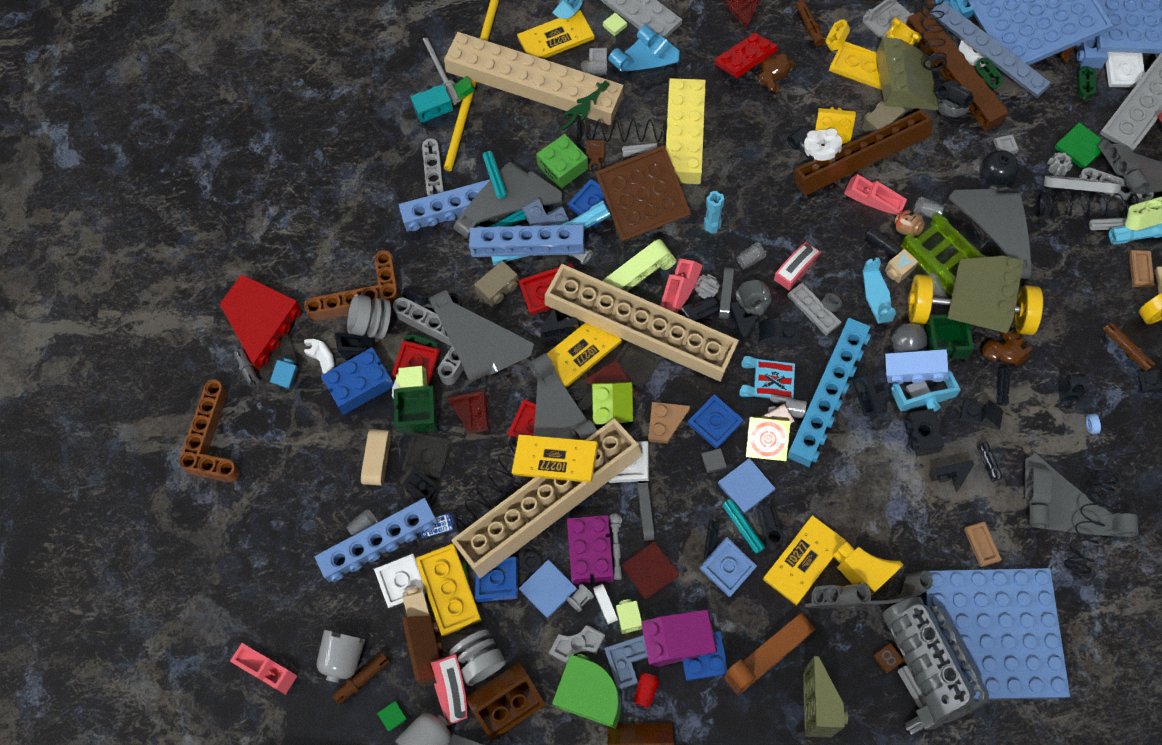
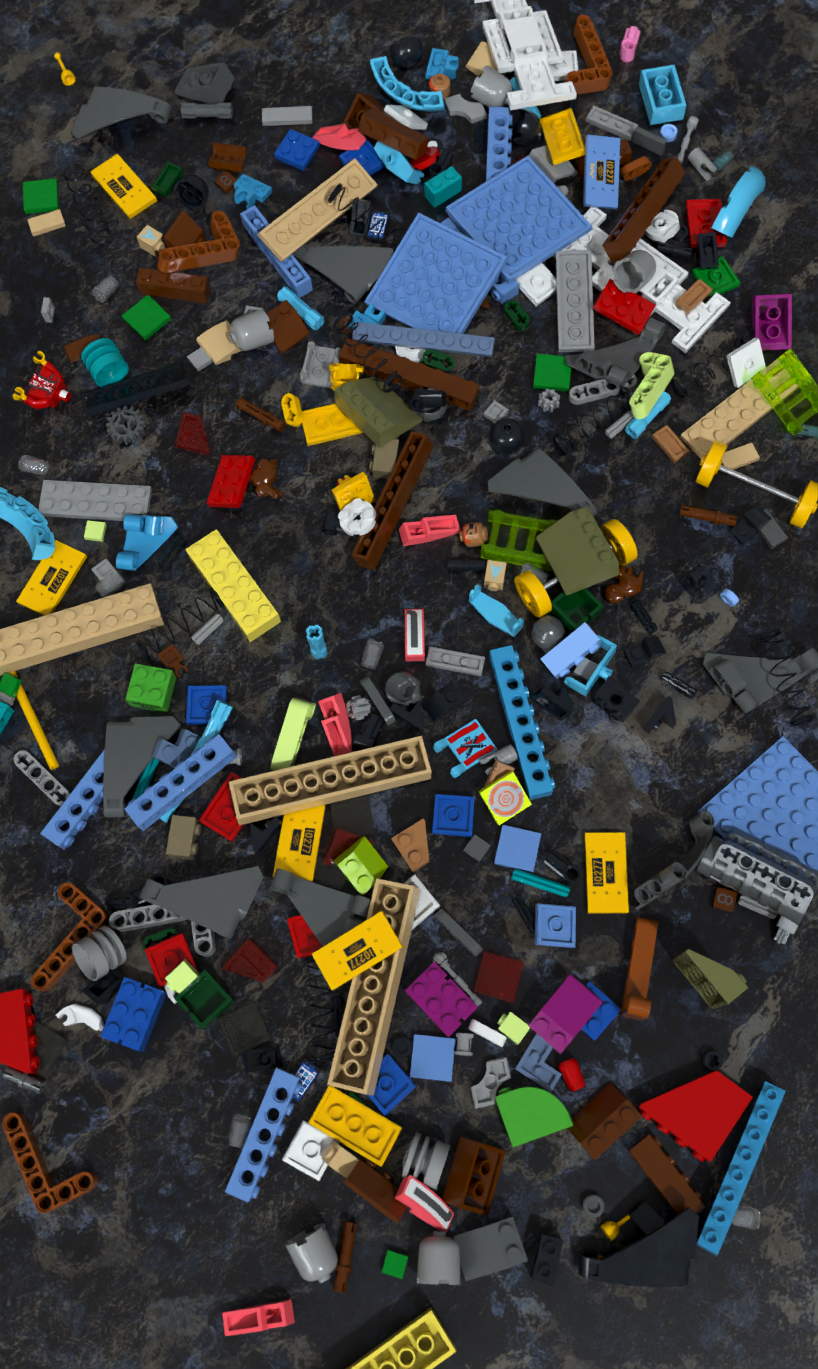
camera: 40 degrees left, 5 degrees up
(284, 373) = (64, 1059): dark azure brick -> none
(376, 457) = (204, 1065): tan beam -> none
(494, 175) = (105, 745): teal axle -> none
(584, 108) = (134, 629): dark green piece -> none
(643, 193) = (244, 668): reddish brown plate -> none
(831, 302) = (465, 646): dark grey tile -> none
(865, 568) = (659, 847): yellow hips -> none
(927, 207) = (478, 510): clear piece -> none
(982, 544) = (722, 755): medium nougat tile -> none
(1082, 184) = (578, 406): light grey beam -> none

